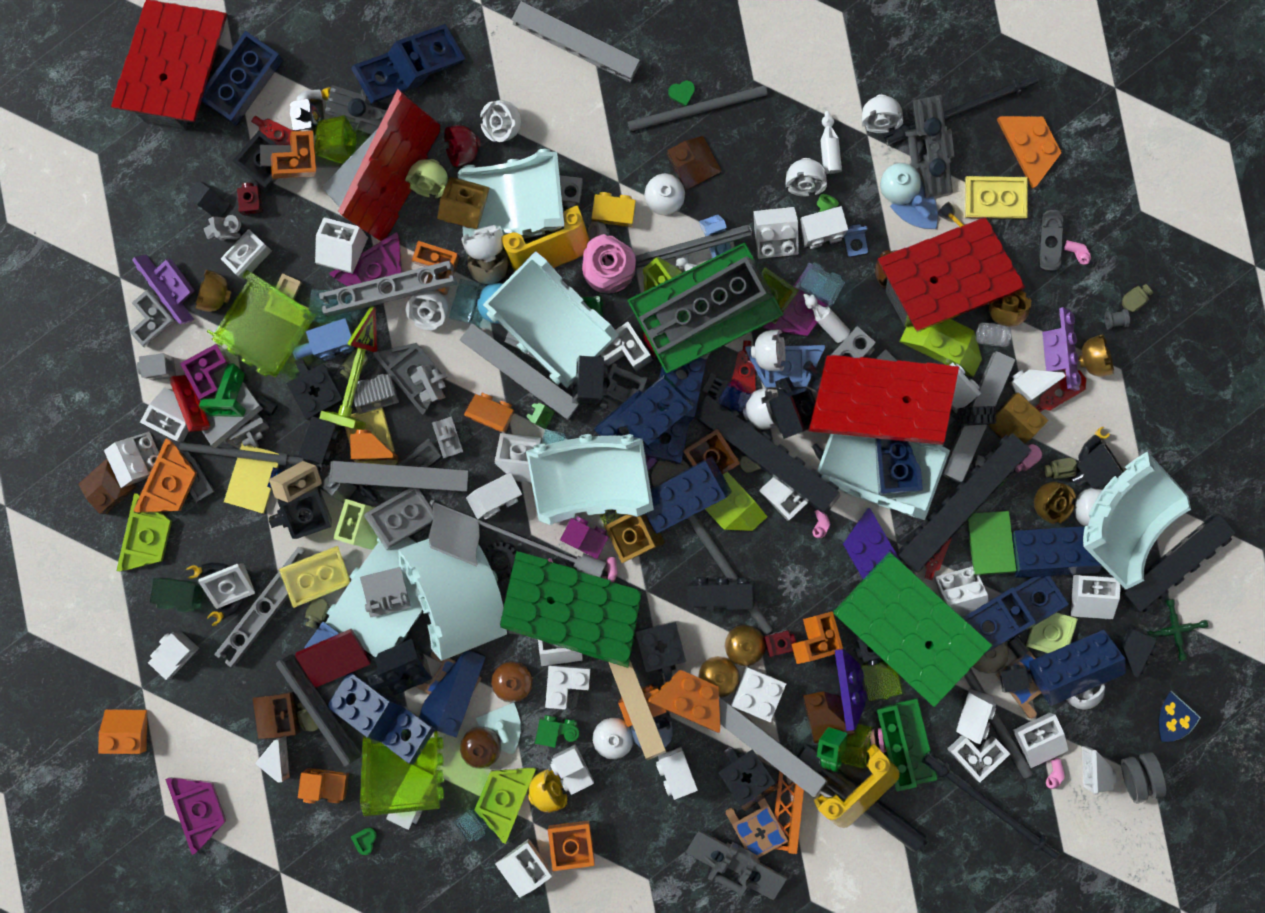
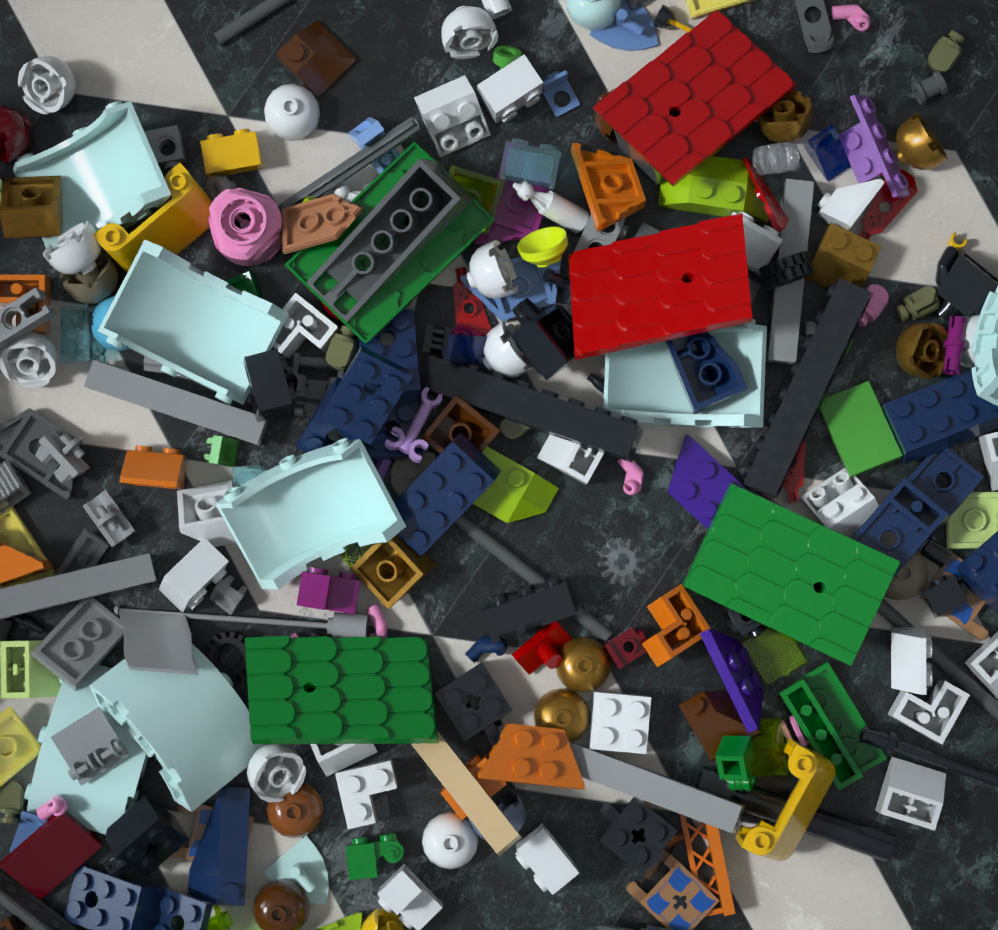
camera: 20 degrees left, 0 degrees up
(348, 626) = (55, 806): none -> bright pink arm
(507, 651) = (275, 772): none -> white cylinder
(512, 518) = (226, 596): none -> light grey tile
(648, 371) = (342, 349): none -> olive arm
(658, 277) = (316, 222): none -> nougat tile
(672, 451) = (408, 442): none -> lavender bar
(681, 609) = (484, 645): none -> dark blue arm
(720, 625) = (542, 648): none -> red tile
(811, 344) = (543, 246): none -> neon yellow piece
(870, 316) = (609, 185): none -> orange wing
(947, 810) = (912, 793): none -> white slope
(981, 372) = (772, 207): none -> red piece
(1031, 342) = (828, 153): none -> clear blue slope
(1077, 506) = (954, 345): none -> magenta pin

